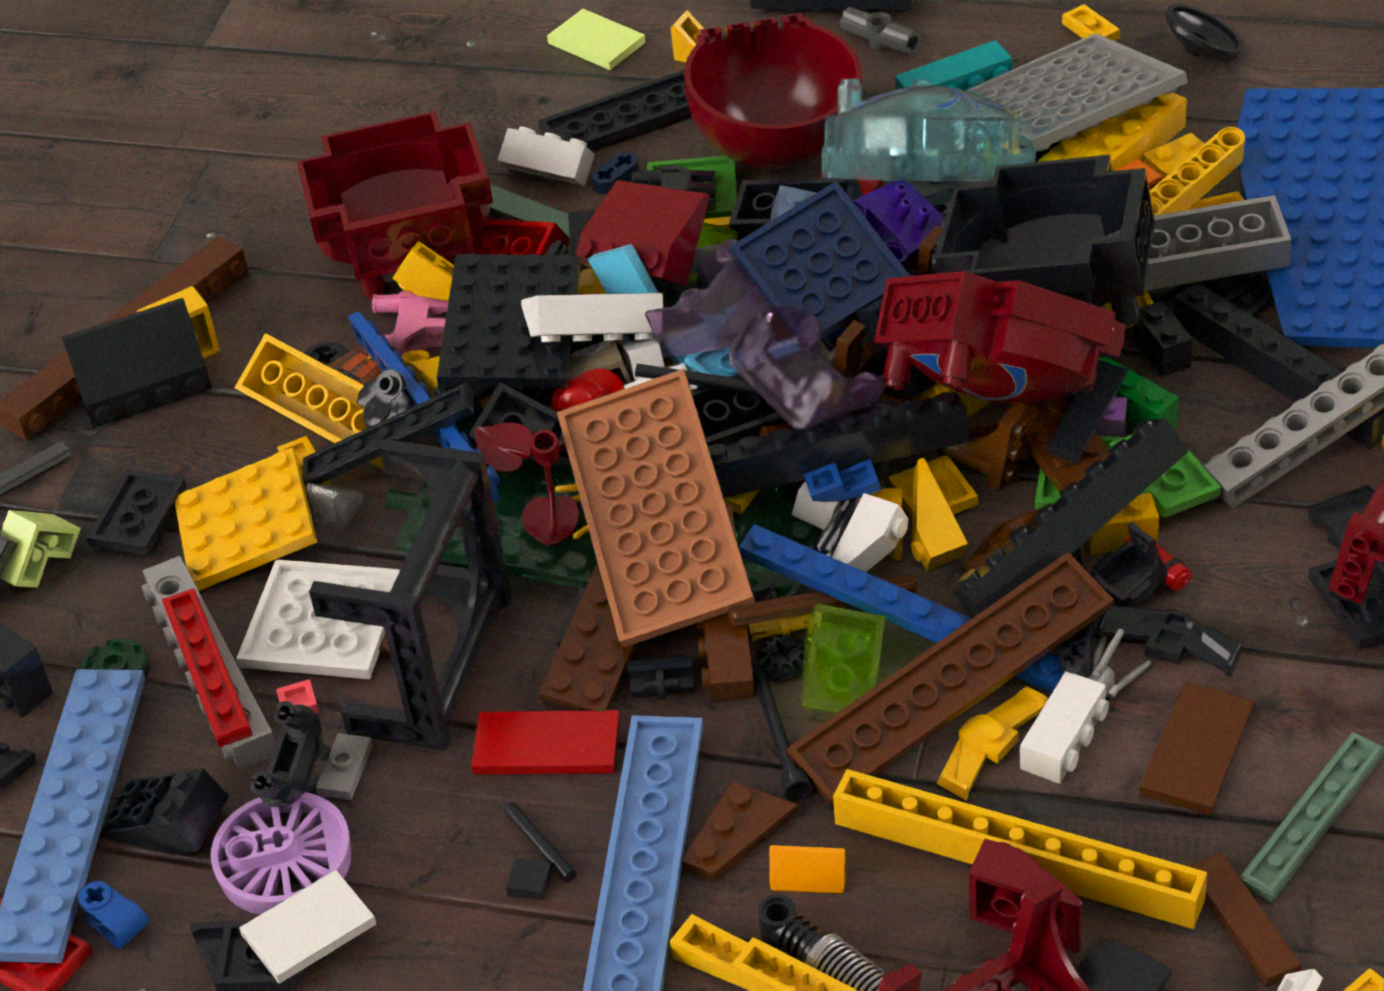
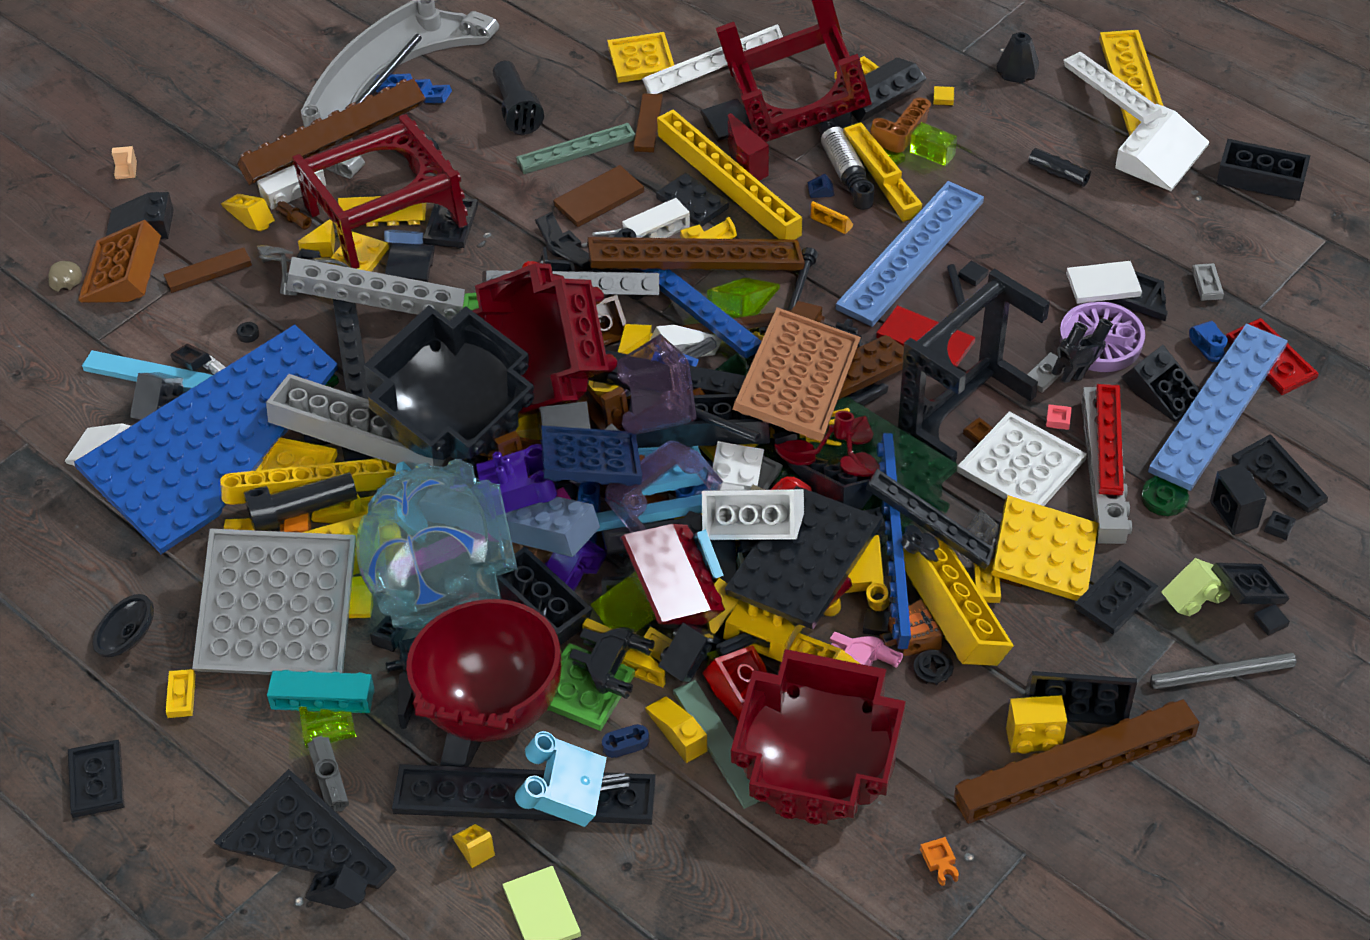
camera: 155 degrees left, 5 degrees up
(236, 211) = (941, 858): none -> orange plate
(546, 156) = (672, 767): white brick -> none
(560, 189) = (679, 728): none -> yellow slope
(625, 75) = (570, 780): none -> piece
(733, 828) = (851, 254): reddish brown wing -> none
(864, 927) = (821, 187): none -> dark blue slope
(916, 55) = (326, 724): none -> clear neon green wing
(1053, 801) = (695, 197): none -> black plate
(1166, 145) = (268, 509): none -> black piece

